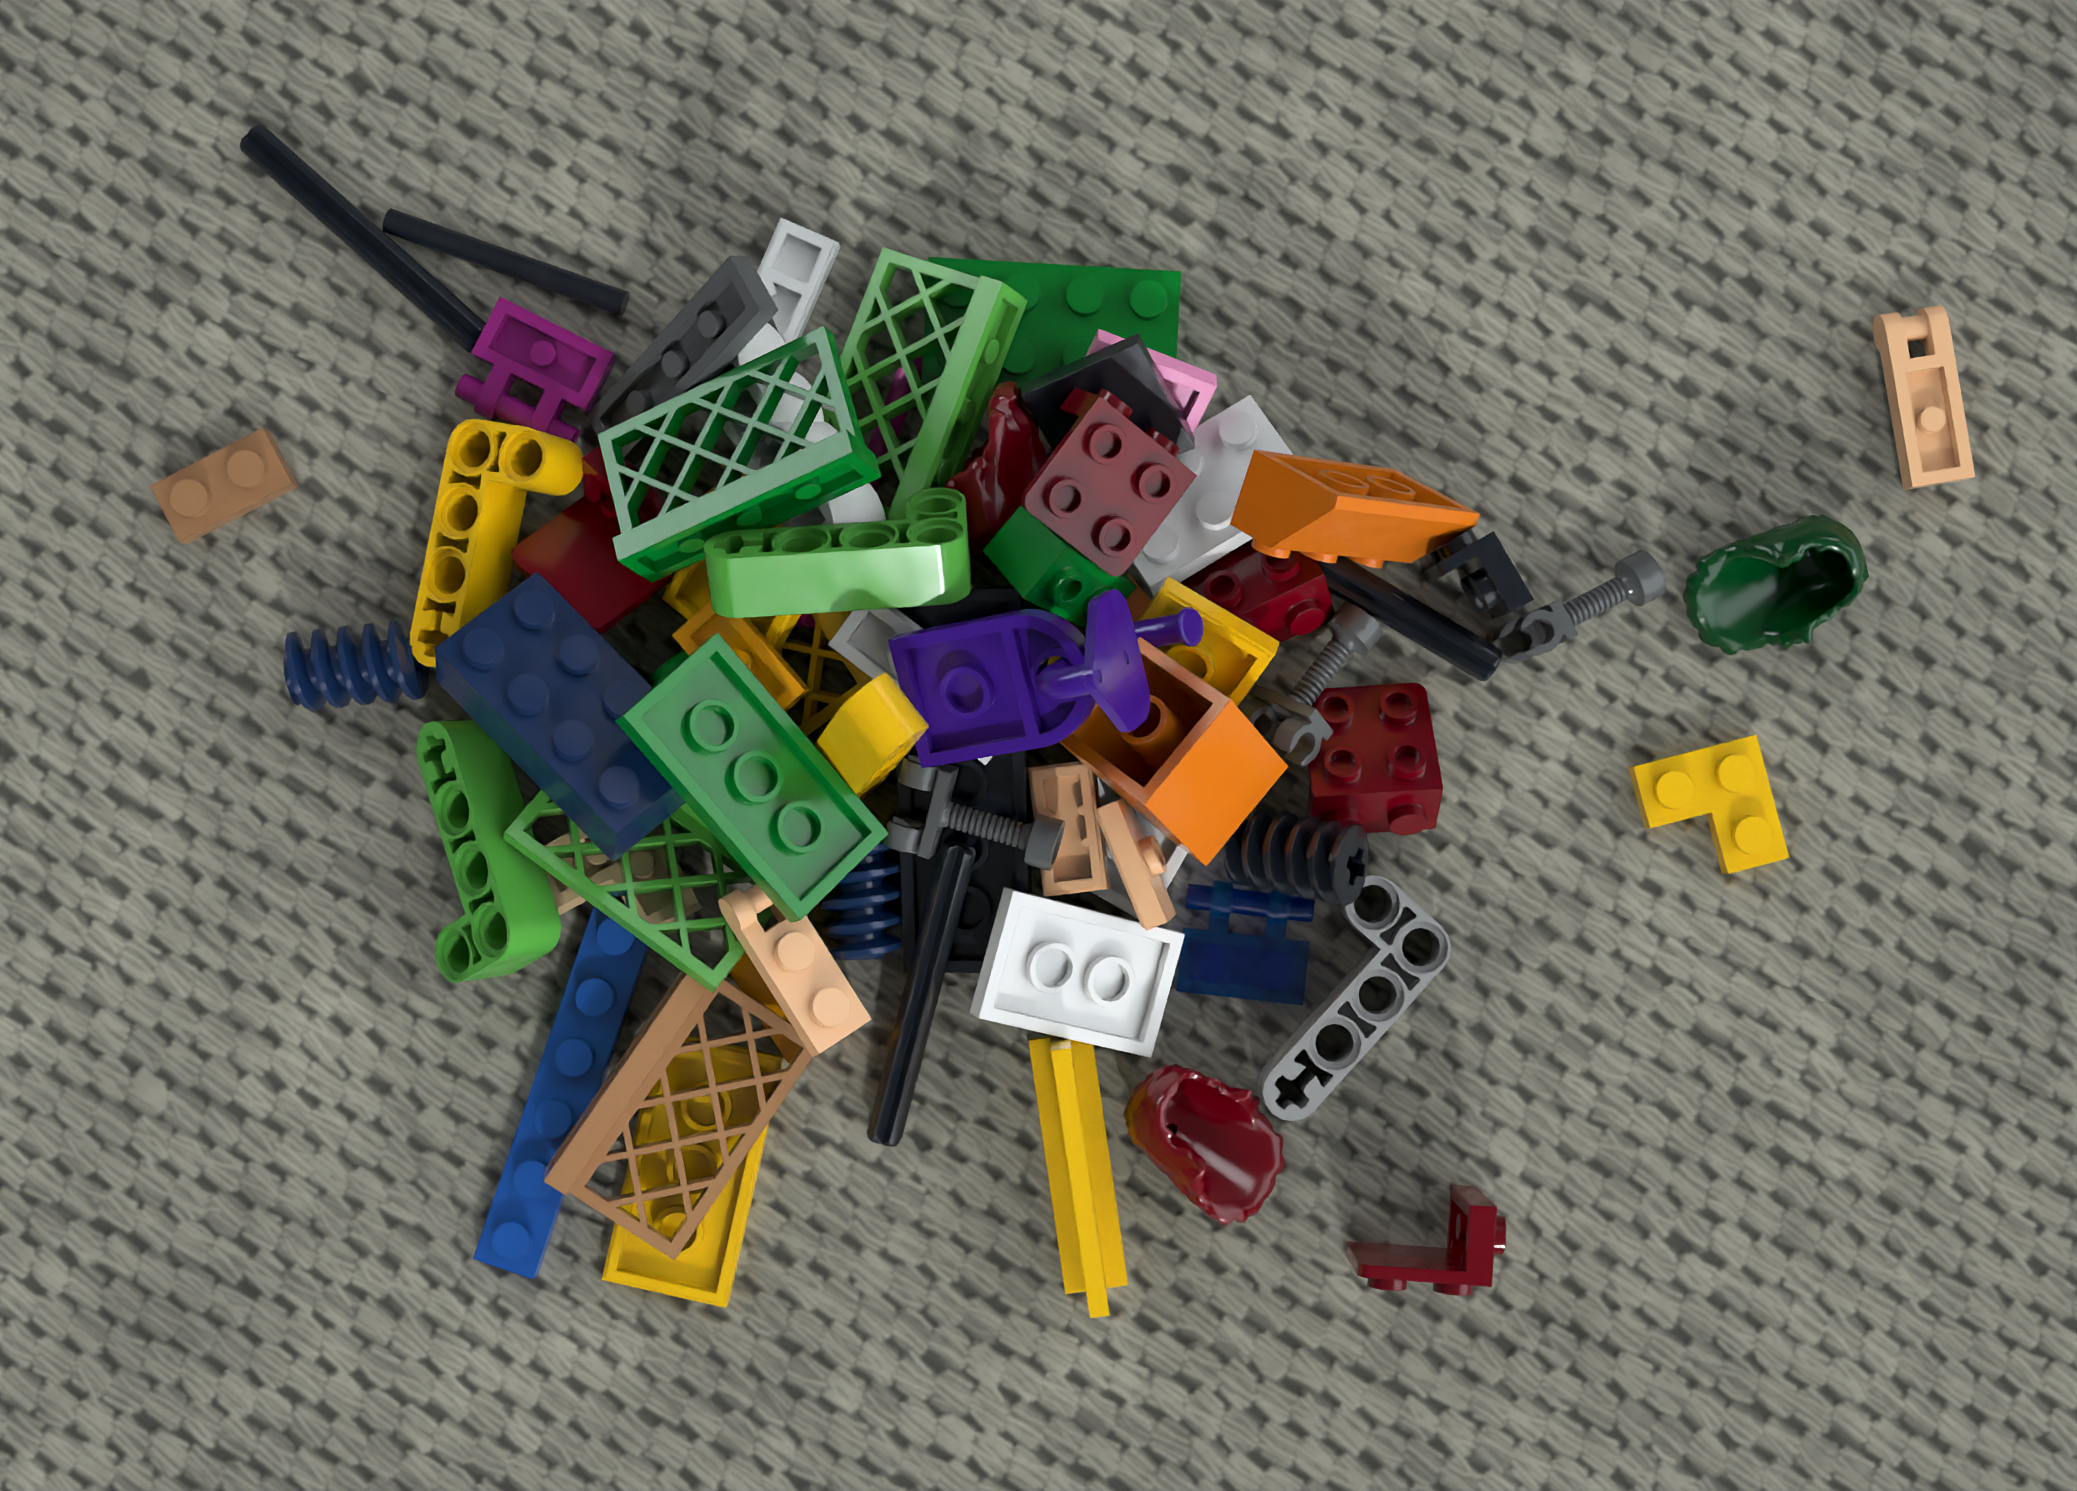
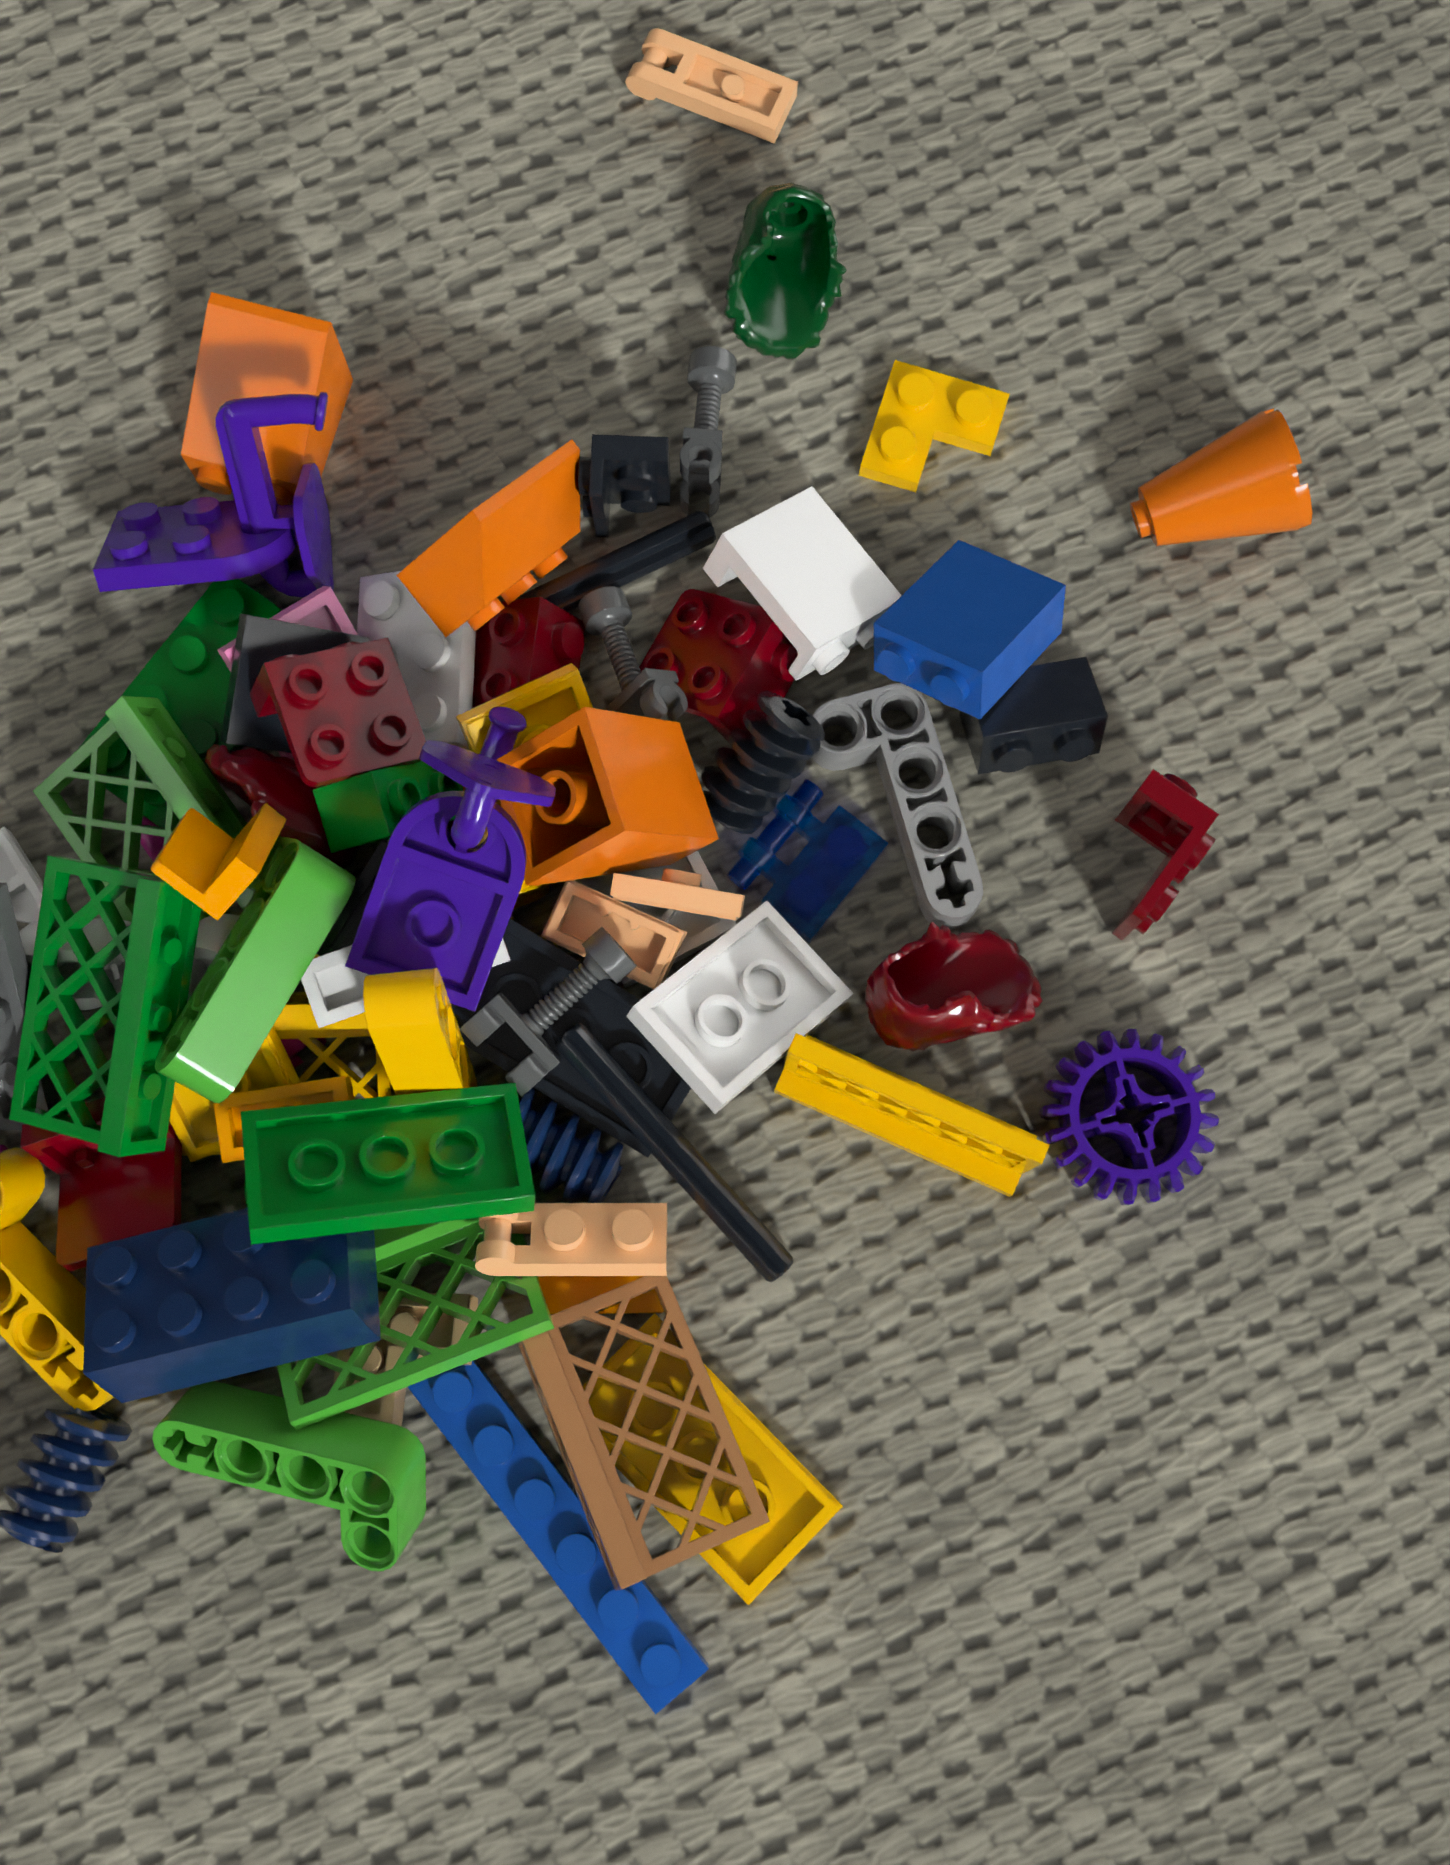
camera: 60 degrees left, 10 degrees down
(904, 475) = (211, 864): none -> light orange panel
(1173, 1373) = (1180, 1101): none -> dark purple gear
(1209, 261) = (233, 537): none -> dark purple plate
(1348, 208) = (261, 353): none -> orange slope
(1492, 794) = (807, 579): none -> white panel
(1493, 1064) = (1040, 719): none -> black brick
(1533, 963) = (968, 628): none -> blue brick
(1816, 1110) = (1228, 488): none -> orange cone

